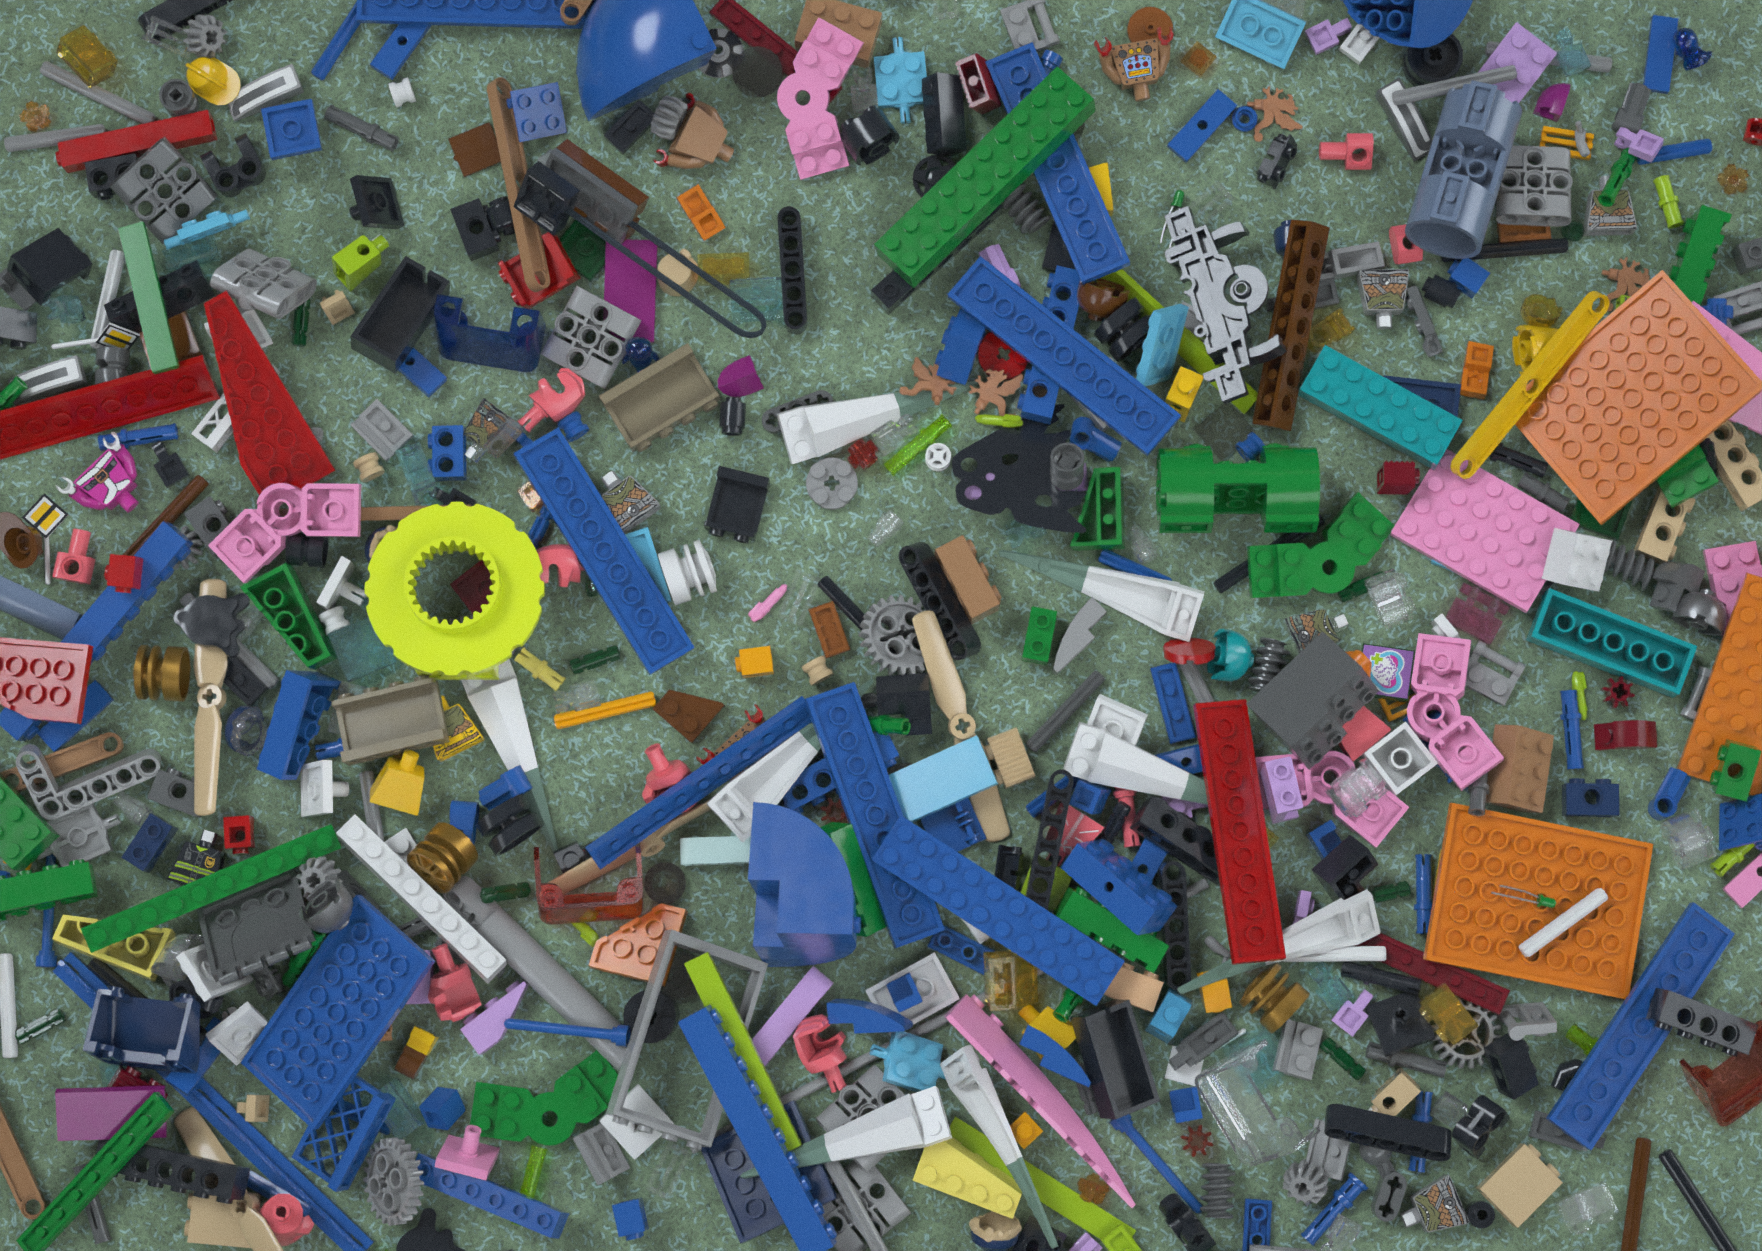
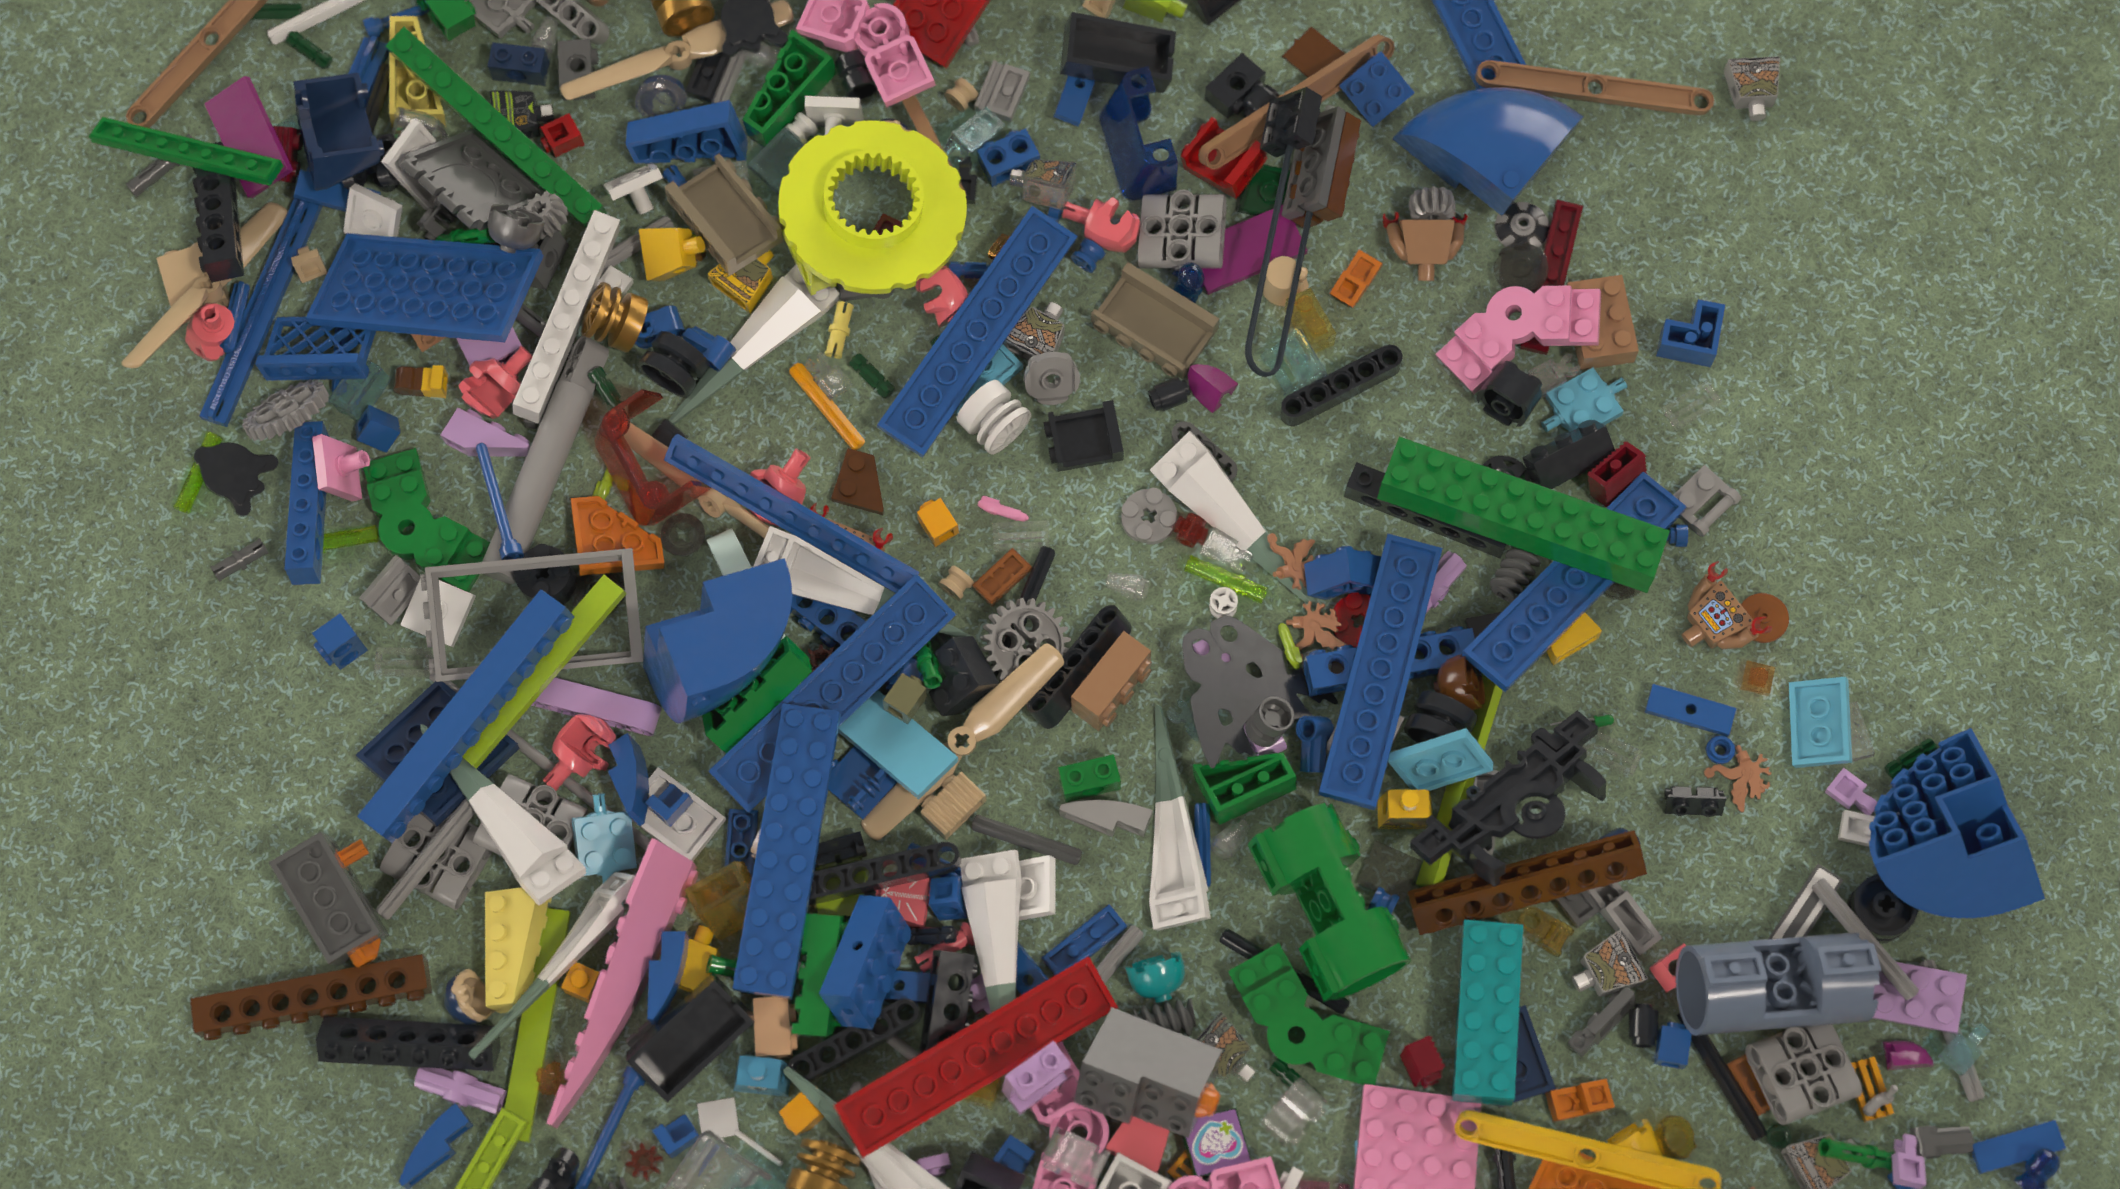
camera: 65 degrees right, 10 degrees down
(630, 127) = (1404, 177): black plate -> none
(662, 513) = (1051, 363): none -> light grey plate
(906, 755) = (905, 698): none -> olive brick
(1196, 649) = (1143, 936): red tile -> none
(1203, 1042) = (749, 1124): dark grey hinge -> none
(1345, 150) = (1739, 863): coral piece -> none

